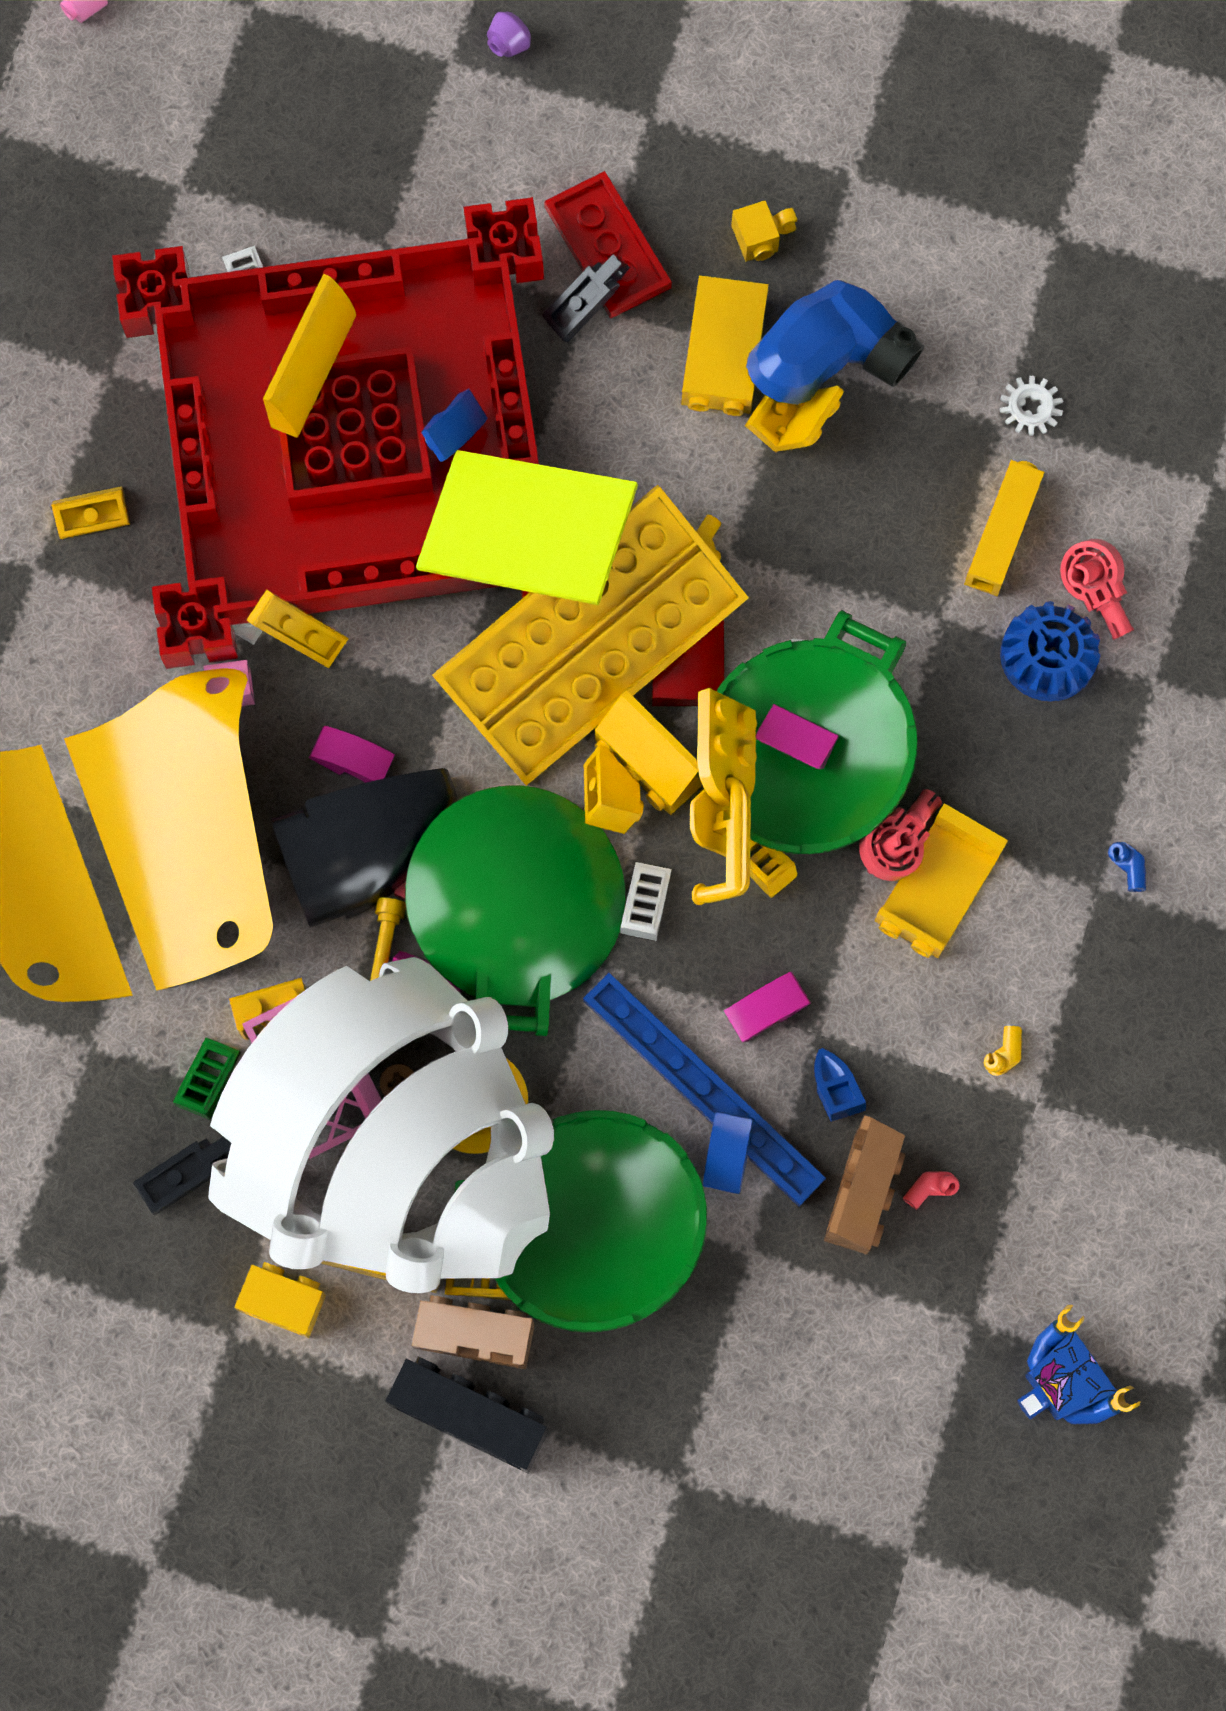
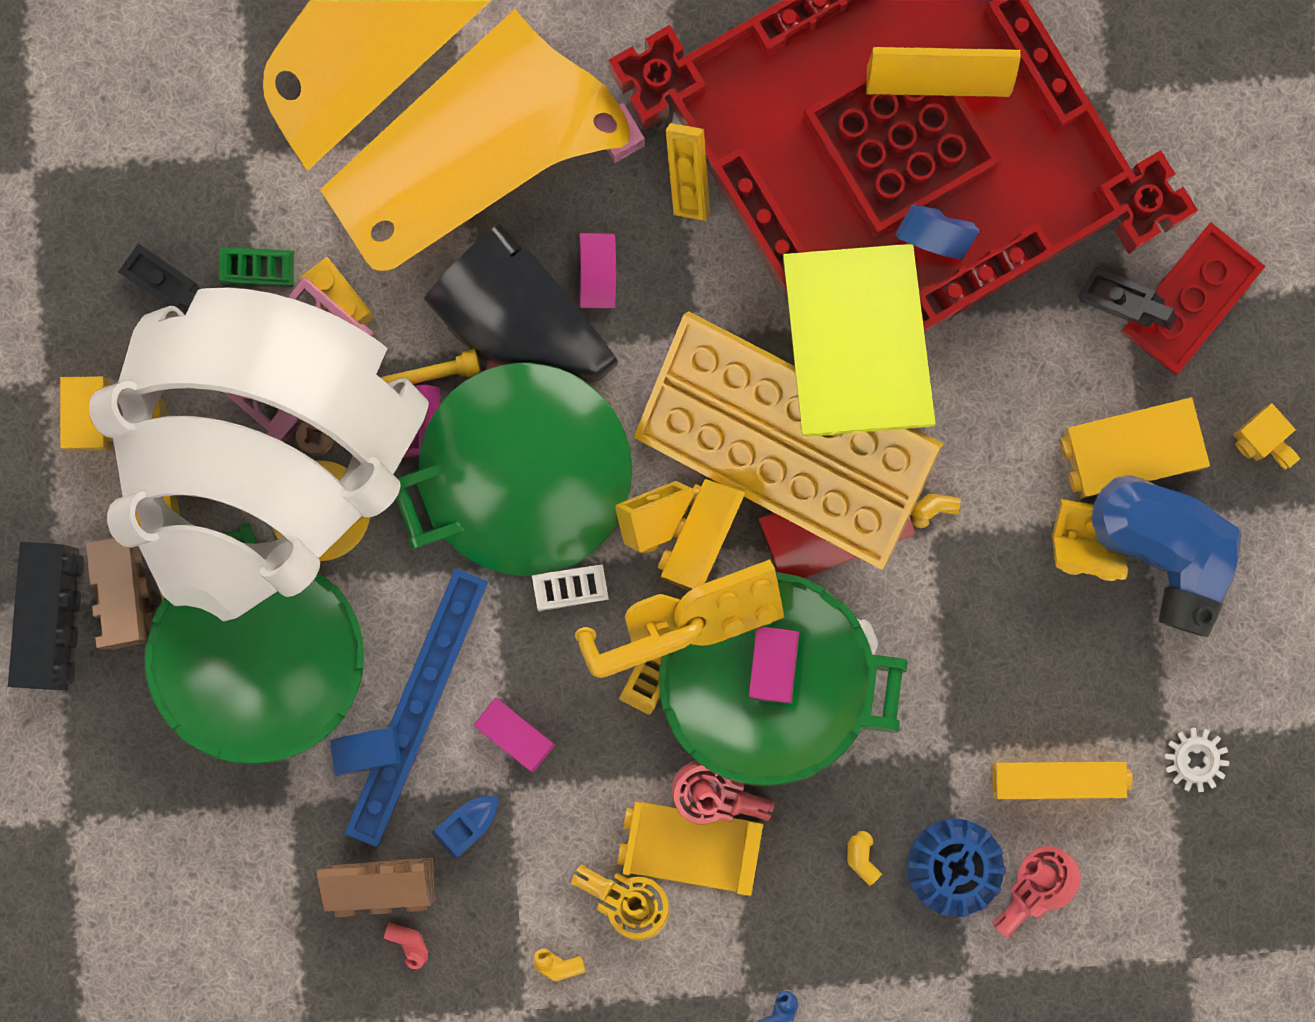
camera: 65 degrees right, 10 degrees up
(959, 962) = (628, 903): none -> yellow pin
(1007, 734) = (858, 857): none -> yellow arm

